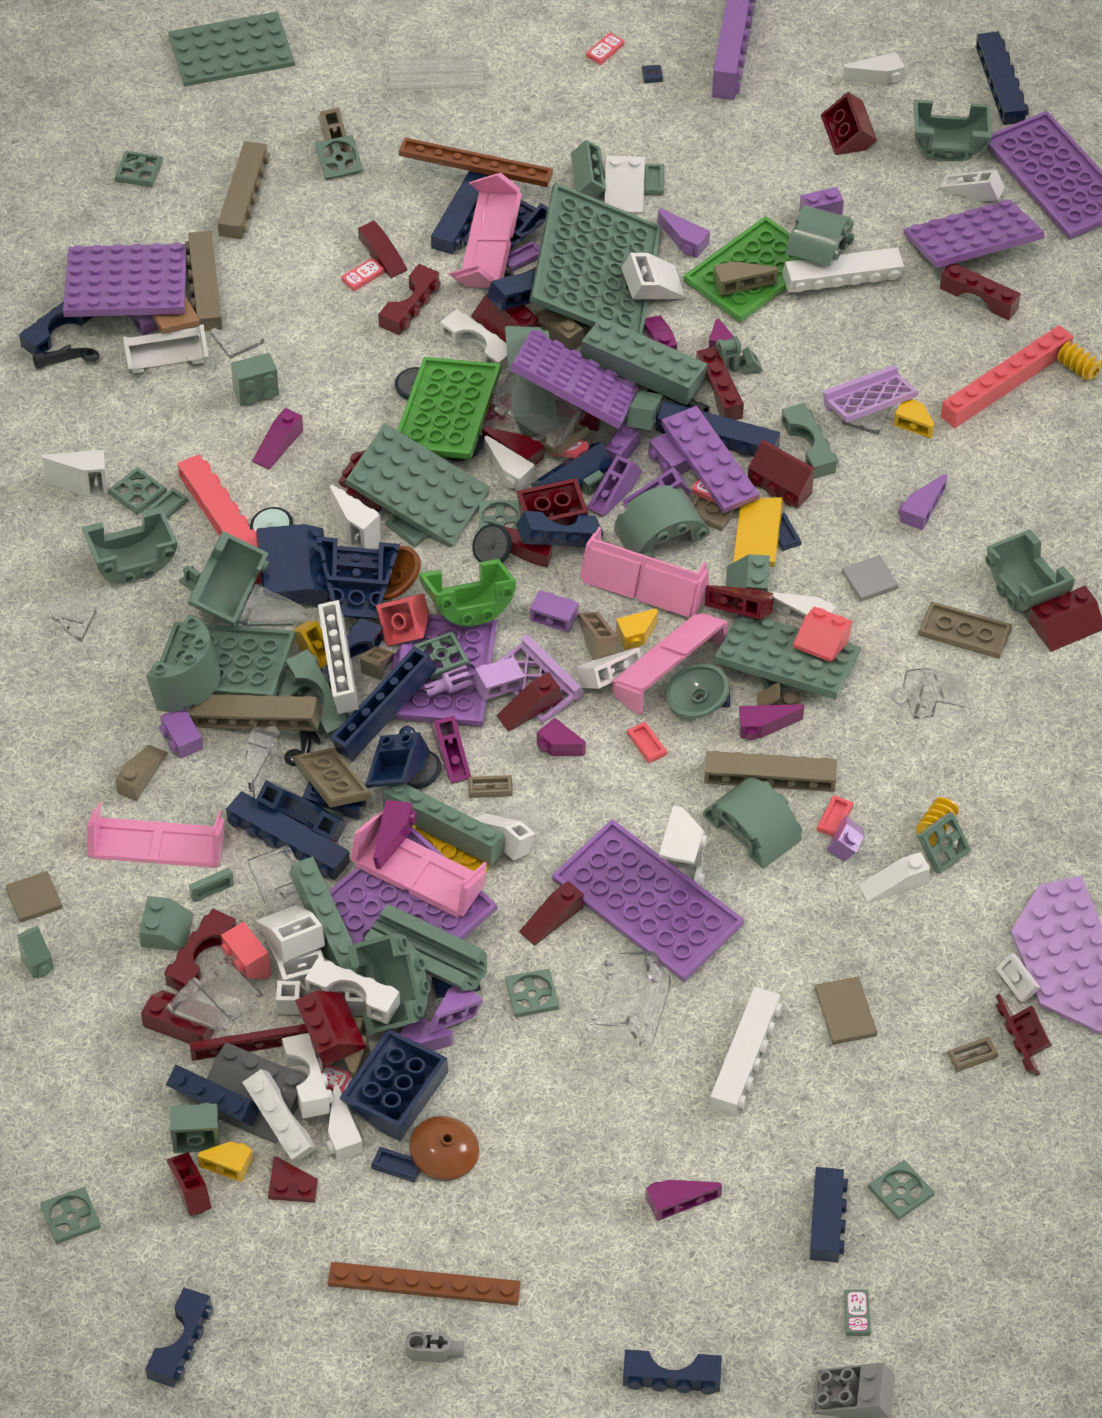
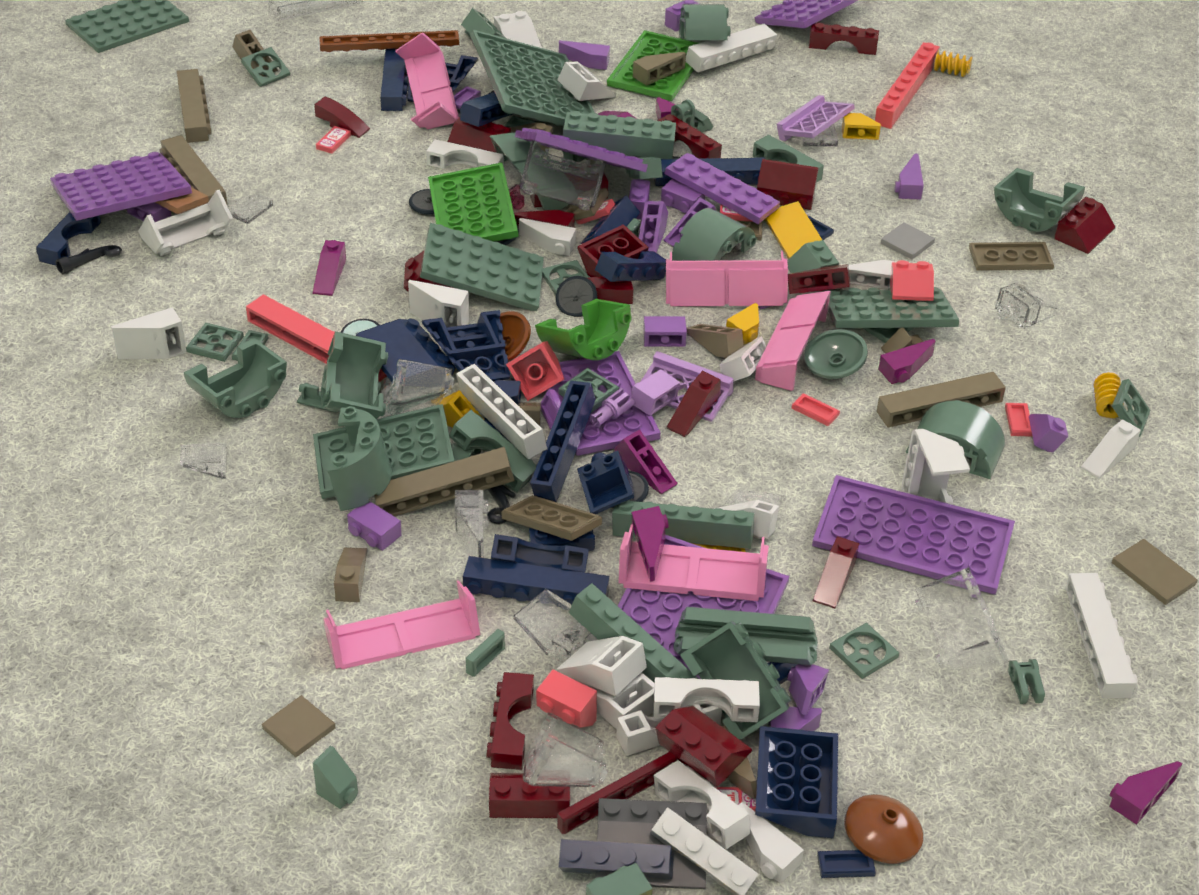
camera: 25 degrees left, 10 degrees down
(134, 178) = (87, 106): sand green piece -> none
(165, 924) = (458, 706): sand green slope -> none
(255, 379) = (283, 227): sand green brick -> none
(398, 315) = (384, 157): dark red arch -> none
(406, 531) = (483, 304): sand green tile -> none
(490, 788) = (702, 487): dark tan tile -> none
(560, 740) = (741, 428): magenta slope -> none
(651, 1061) = (1023, 674): none -> sand green piece
(654, 179) = (541, 30): sand green tile -> none

